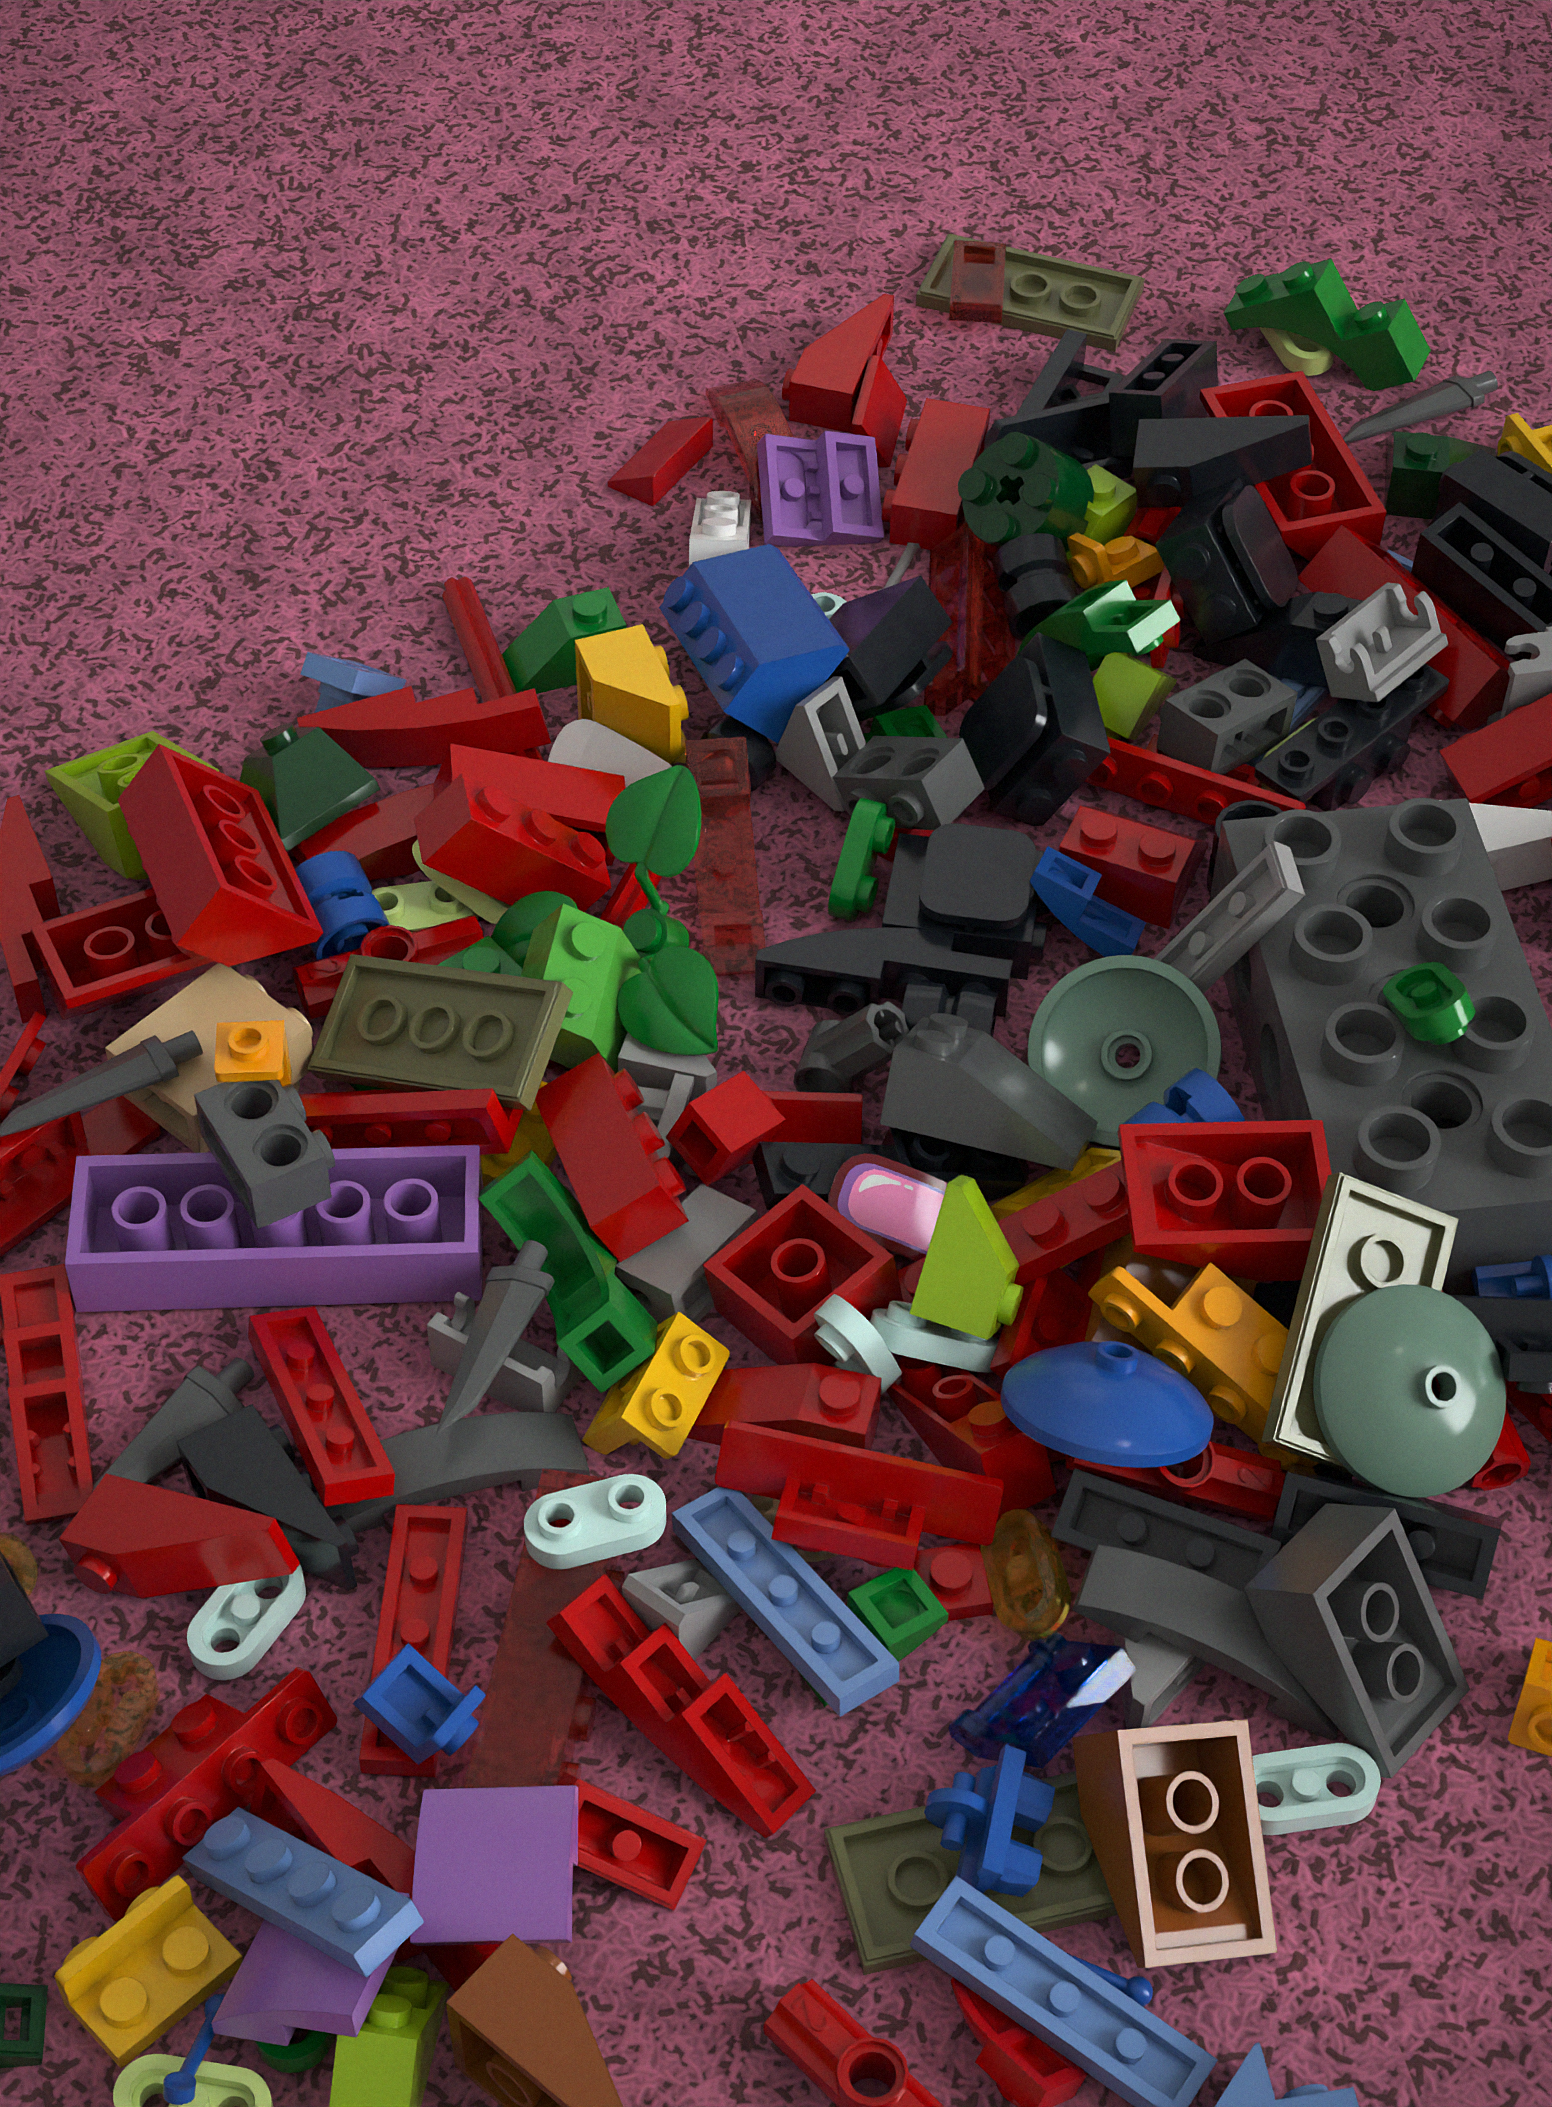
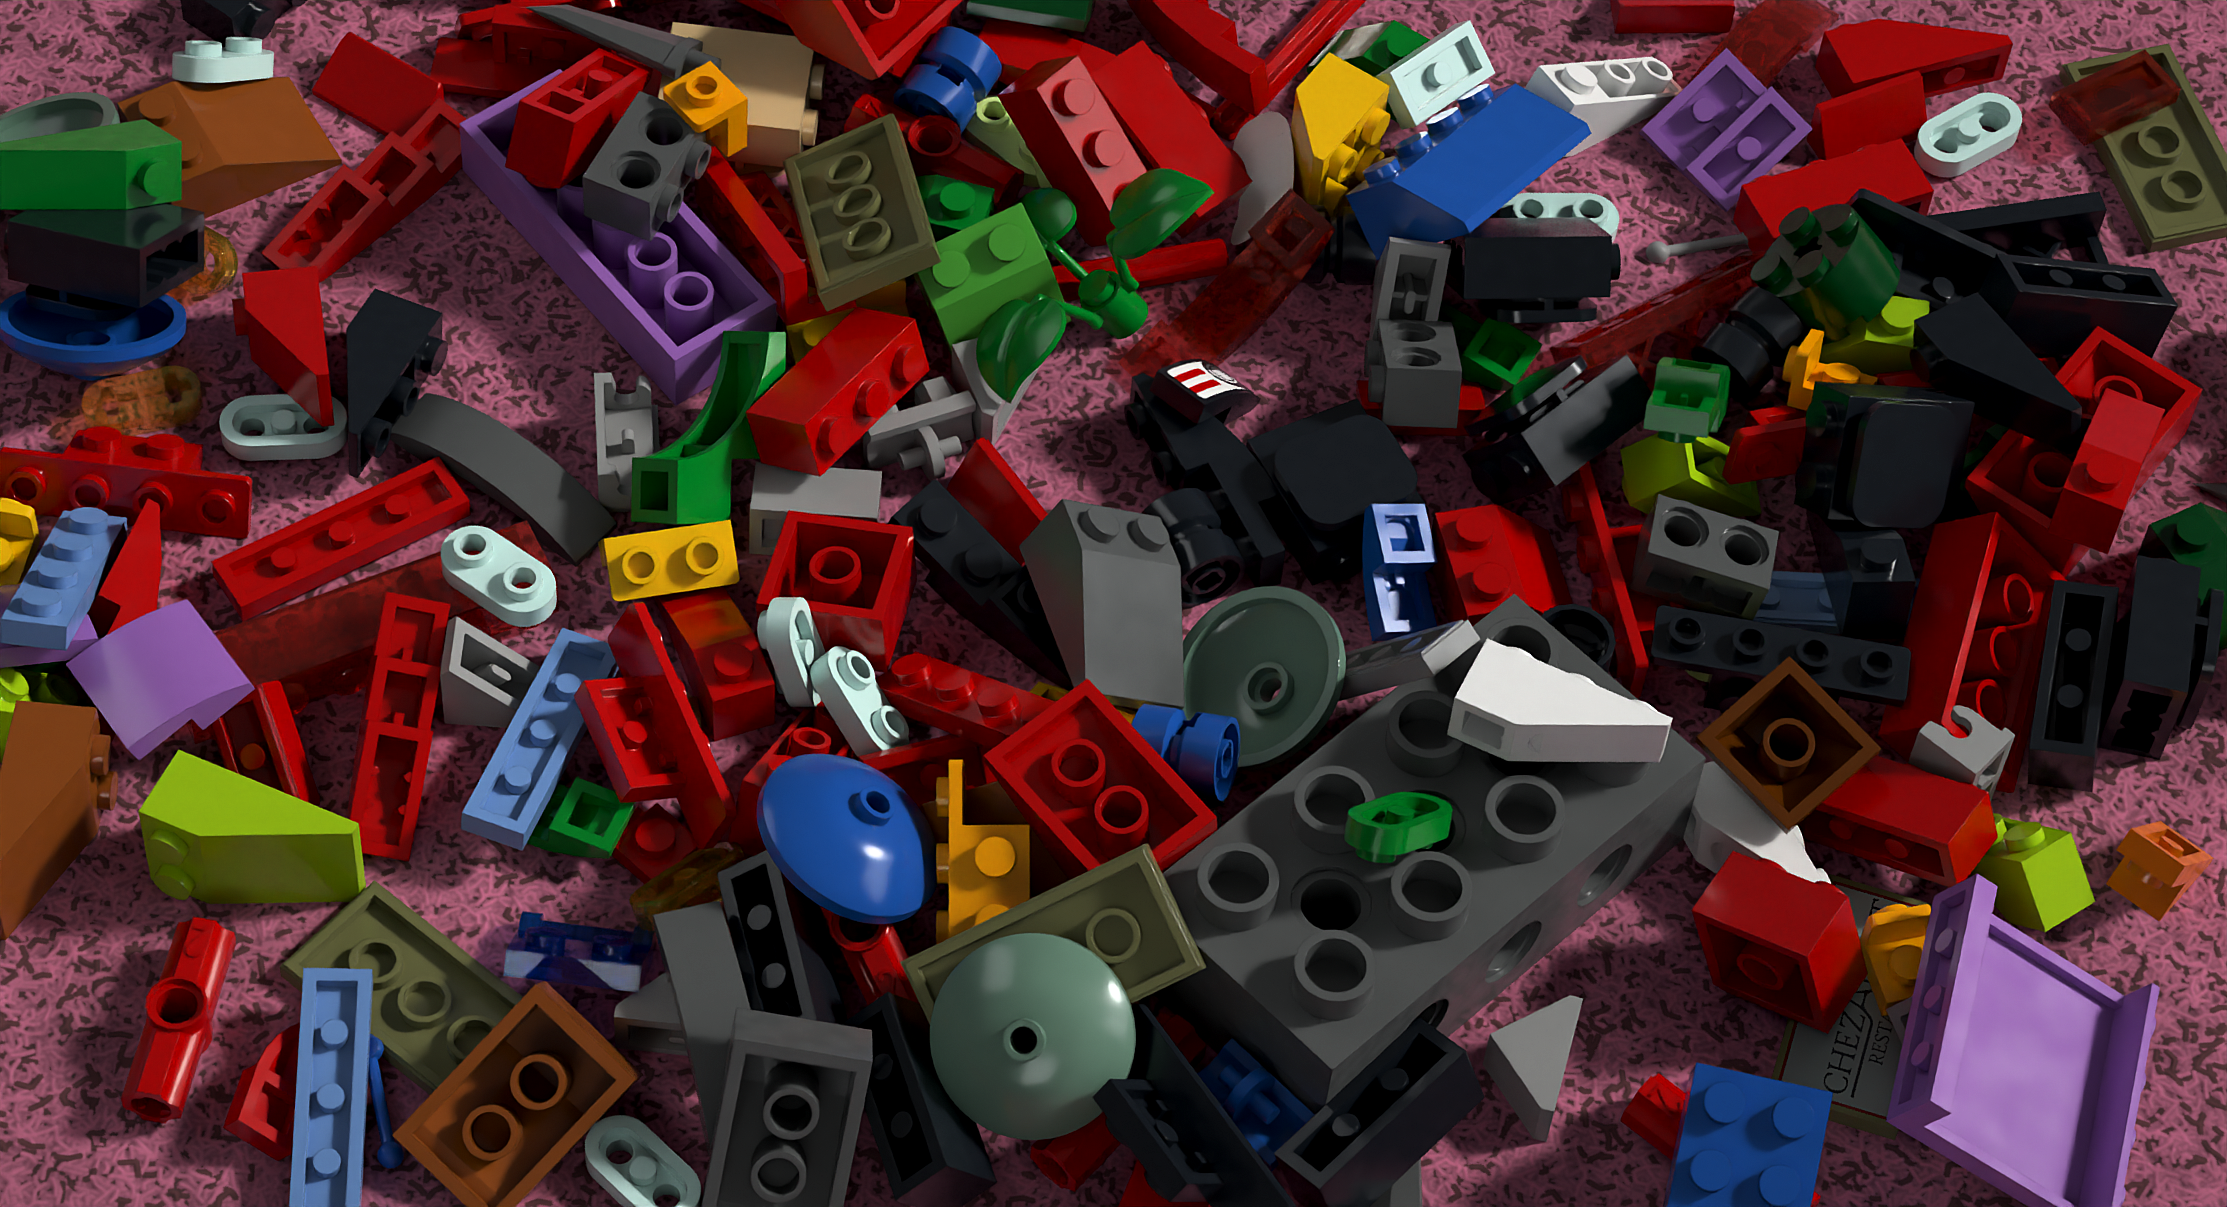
camera: 50 degrees right, 5 degrees up
(162, 1167) = (572, 116): none -> red slope
(192, 1406) = (435, 288): dark grey bar -> none
(321, 1406) = (478, 355): red plate -> none
(419, 1706) = (264, 562): blue bracket -> none
(504, 1312) = (637, 411): dark grey bar -> none
(639, 597) = (1436, 74): none -> light aqua plate
(713, 1910) = (245, 841): none -> lime slope
(724, 1127) = (932, 446): red brick -> none
(805, 926) = (1203, 391): none -> black slope
(849, 1049) = (1096, 484): dark grey piece -> none
(853, 883) = (1311, 386): green plate -> none
(889, 1202) = (967, 615): sticker -> none
(935, 369) = (1962, 134): none -> light aqua plate
(968, 1267) = (913, 671): lime slope -> none
(980, 1818) = (410, 985): blue hips -> none
(1358, 452) = (2105, 471): none -> red slope
(1379, 644) = (1870, 613): light grey hinge -> none
(1390, 851) = (1548, 715): none -> white slope
(1457, 754) = (1787, 744): none -> reddish brown slope

